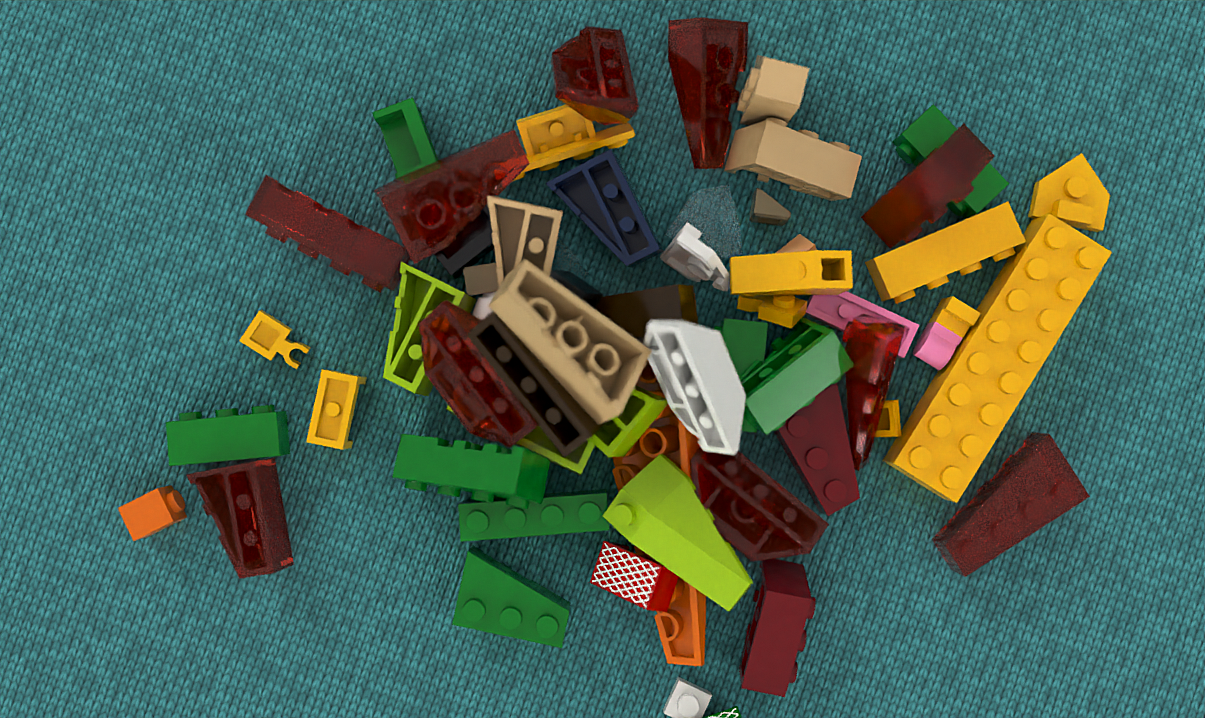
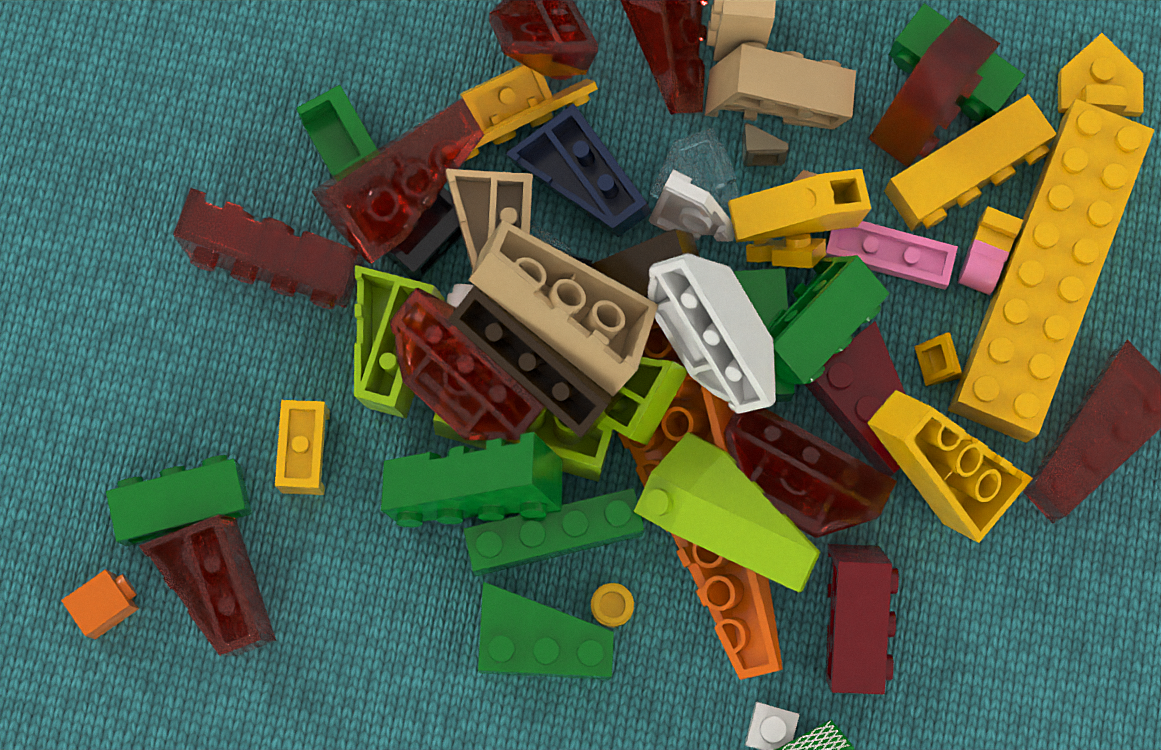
camera: 10 degrees left, 10 degrees down
(269, 336) = (211, 378): yellow plate -> none
(481, 279) = (450, 270): dark tan slope -> none
(574, 579) = (612, 605): none -> yellow tile
(634, 577) = (683, 580): red panel -> none
(874, 350) = (910, 310): clear red wedge -> none
(875, 520) = (949, 468): none -> yellow wedge

